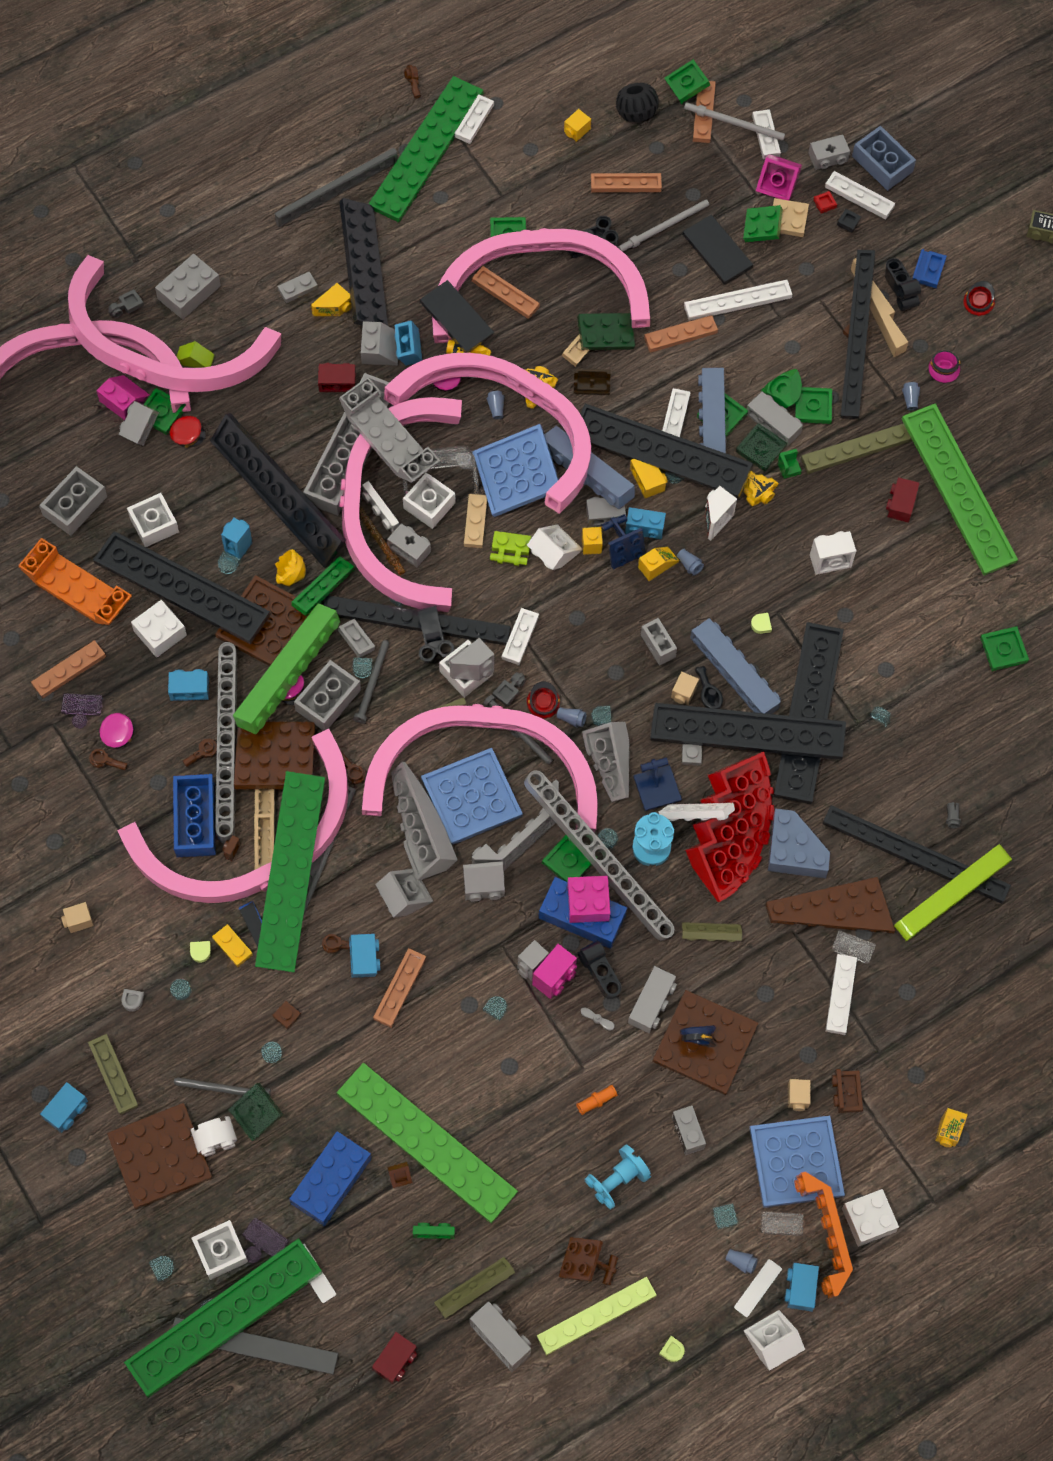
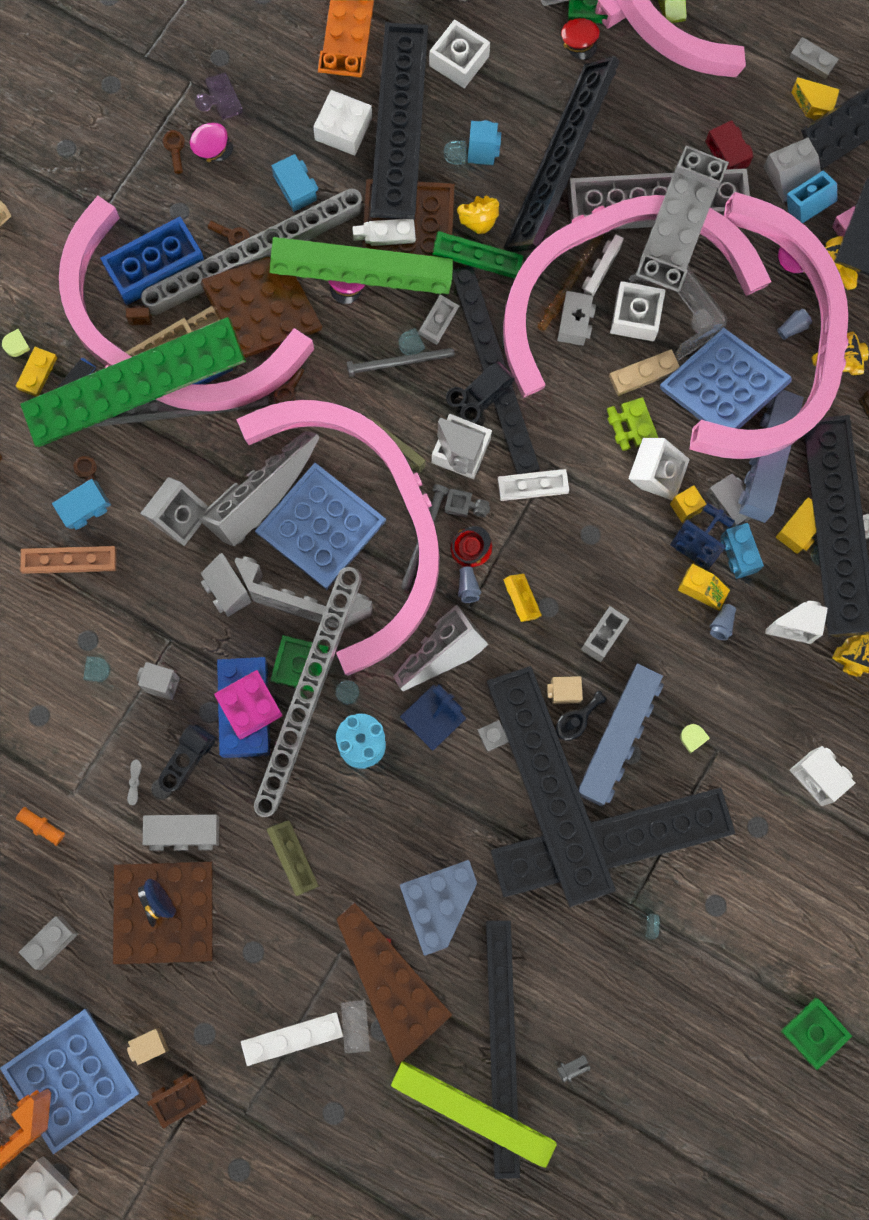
camera: 60 degrees right, 10 degrees up
(68, 669) = (255, 64): nougat plate -> none
(268, 639) = (386, 232): none -> white hinge
(327, 695) = (354, 322): light grey brick -> none
(555, 971) = (157, 710): dark pink brick -> none
(601, 715) = (487, 617): clear light blue tile -> none
(607, 685) = (522, 597): none -> yellow plate
(702, 811) = (417, 774): white plate -> none
(733, 846) = (428, 825): red brick -> none

